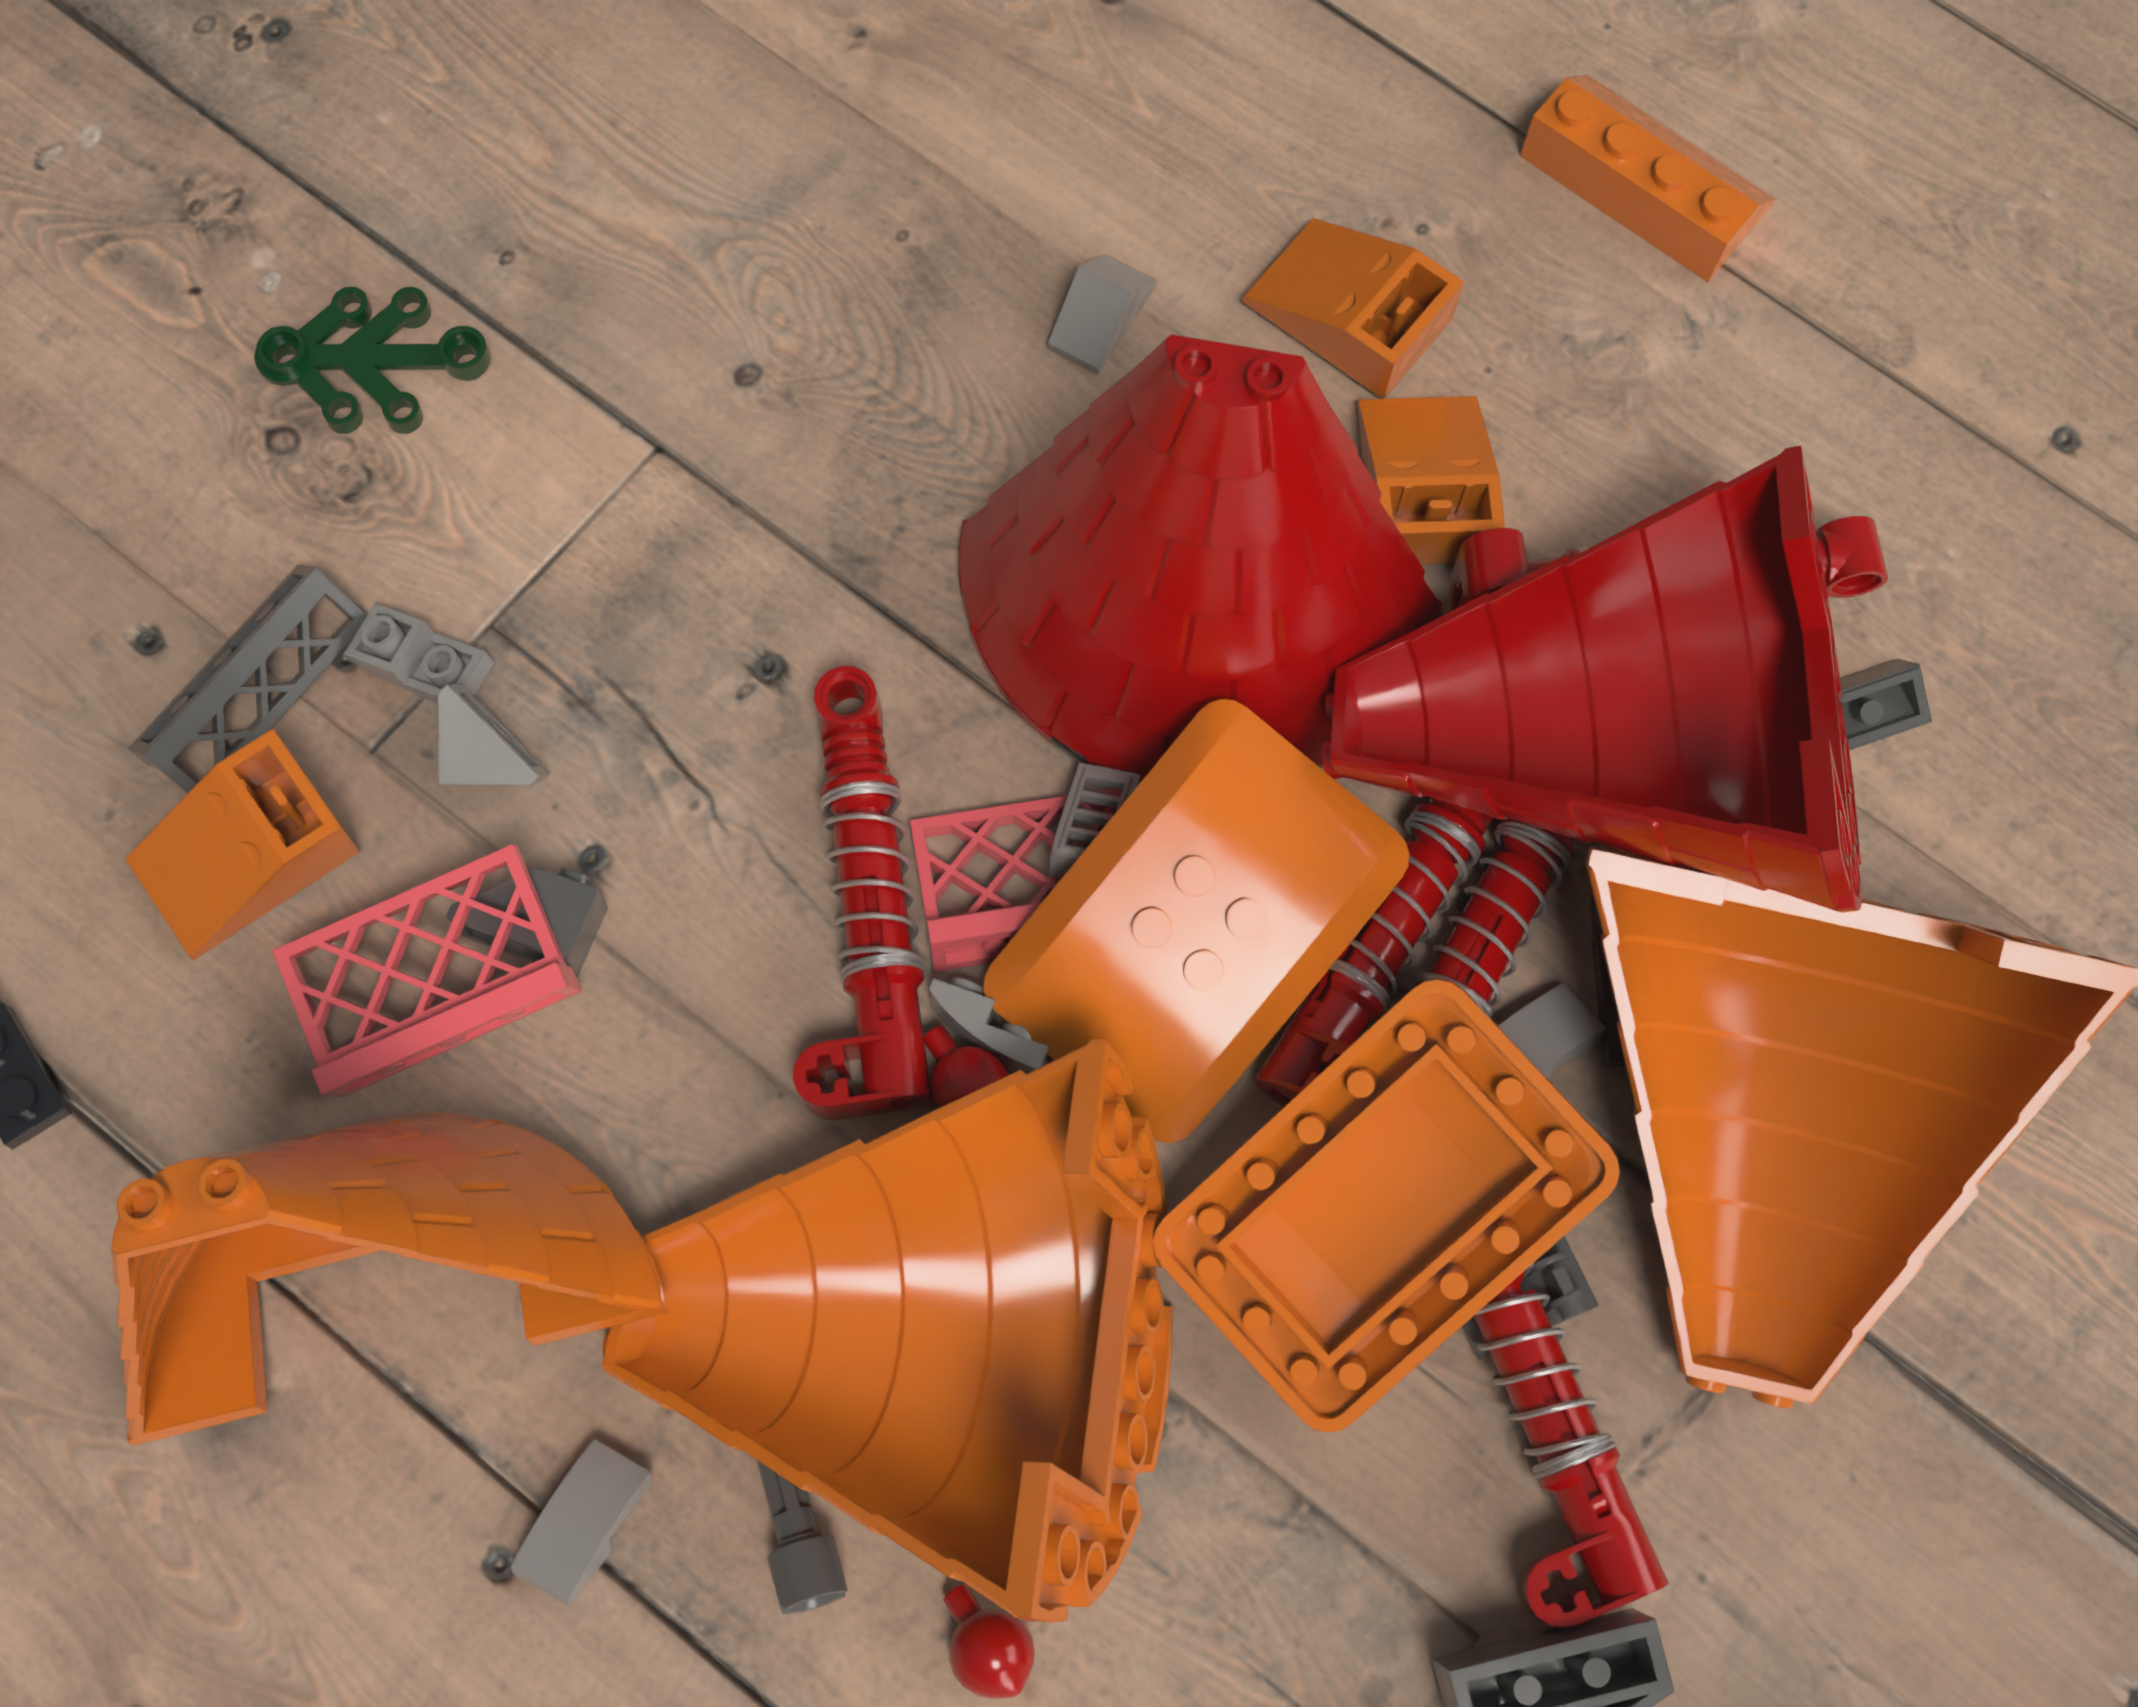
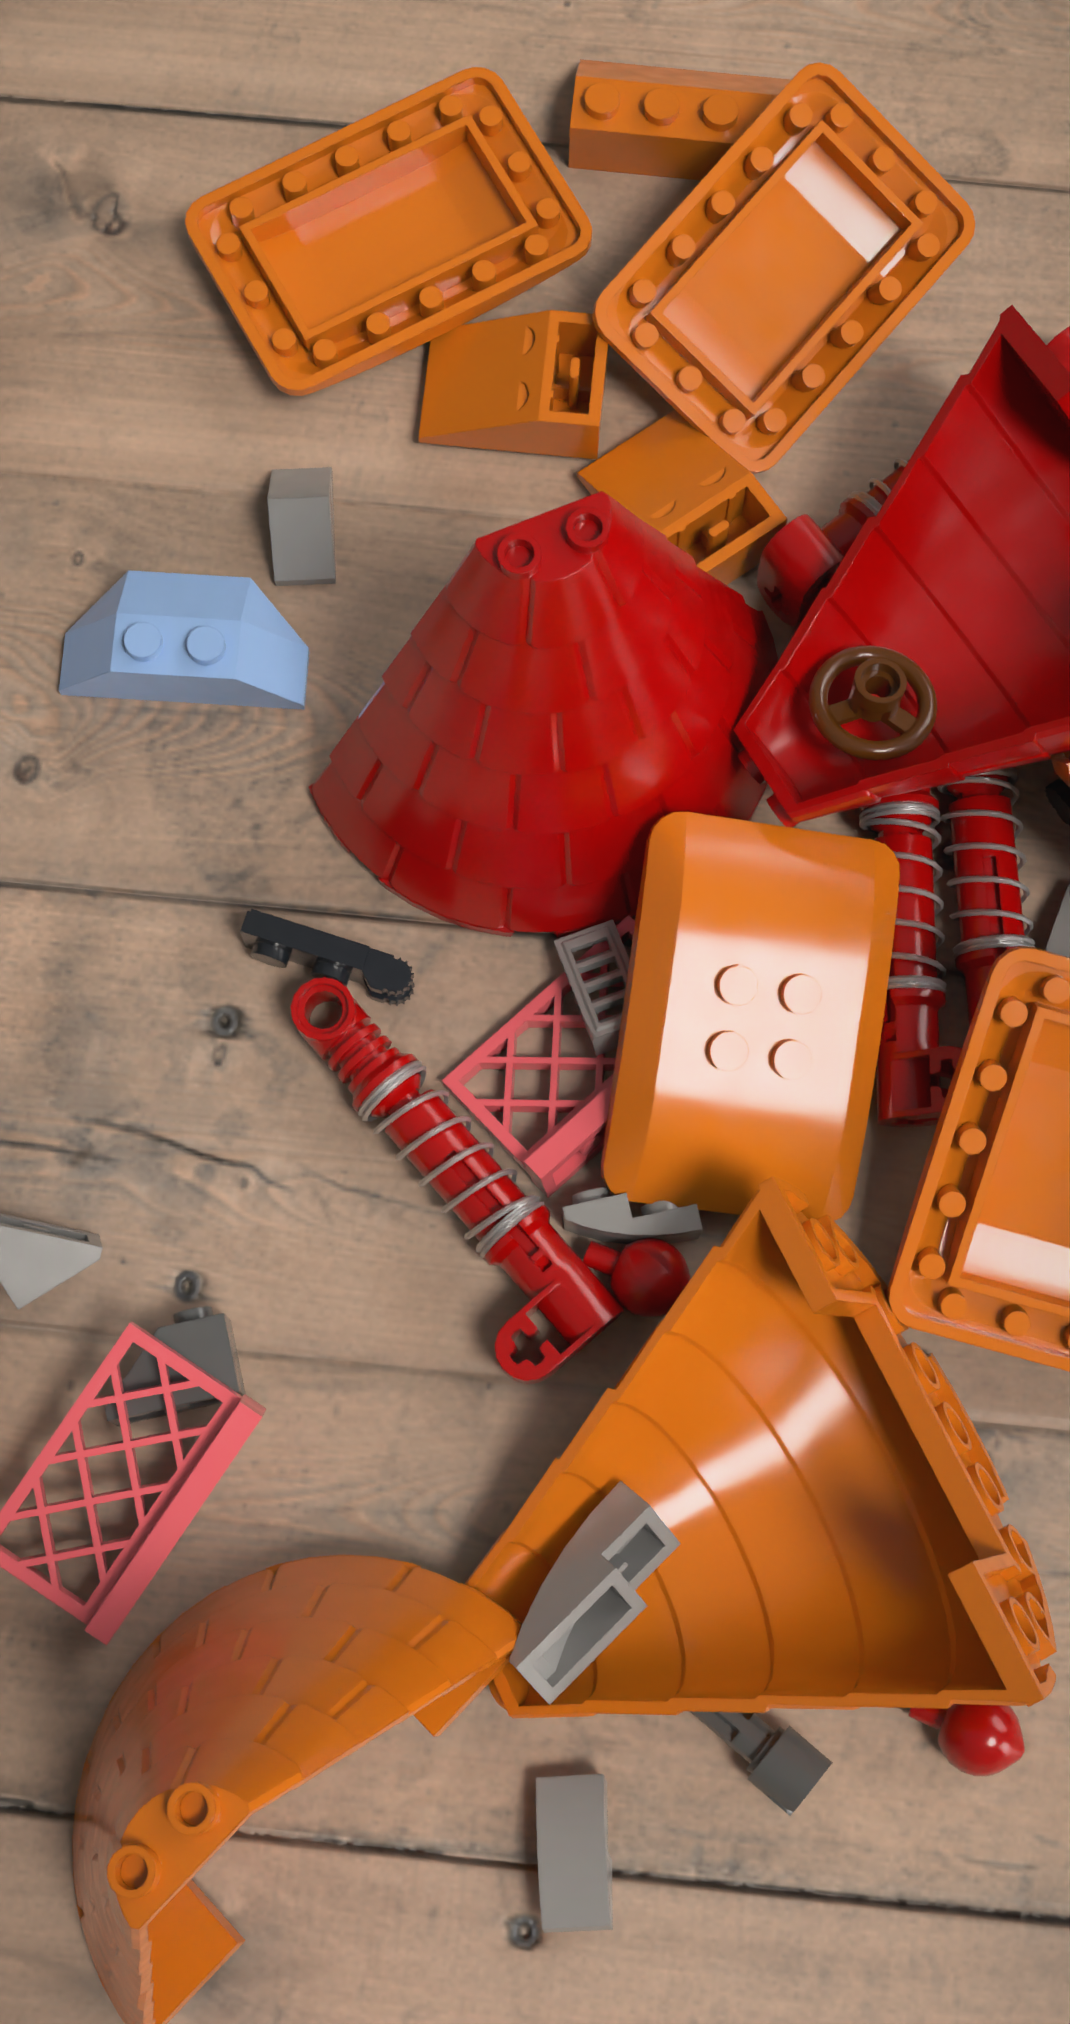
camera: 30 degrees left, 5 degrees up
(736, 1307) = (591, 1591): none -> light grey slope
(892, 671) = (280, 941): none -> black hinge
(942, 350) = (186, 643): none -> light blue wedge
(1327, 118) = (388, 232): none -> orange wedge
(1480, 686) = (882, 674): none -> reddish brown piece
(1643, 328) = (784, 268): none -> orange wedge

